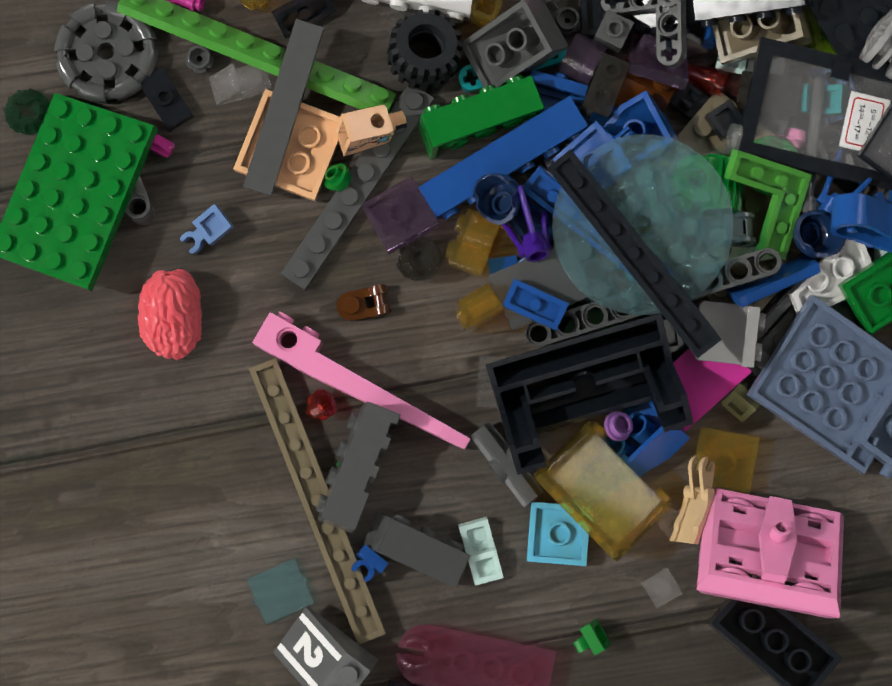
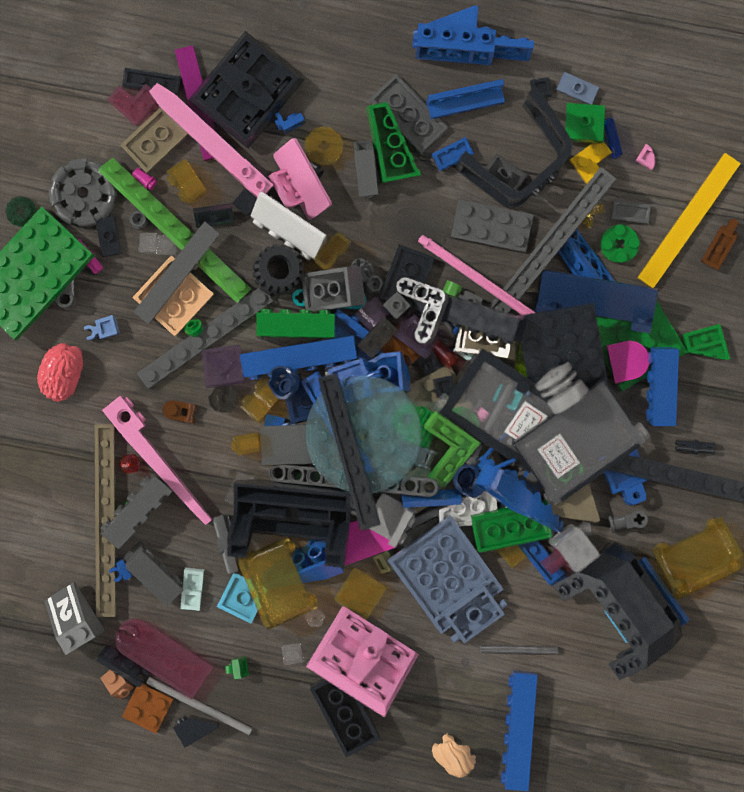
camera: 20 degrees right, 5 degrees up
(280, 591) = (62, 565): clear light blue piece -> none
(357, 129) = (215, 307): light nougat torso -> none
(534, 245) = (294, 419): dark purple plant -> none
(535, 304) = (280, 456): blue plate -> none
(618, 426) = (302, 548): medium lavender plate -> none
(696, 502) = (331, 612): tan arm -> none

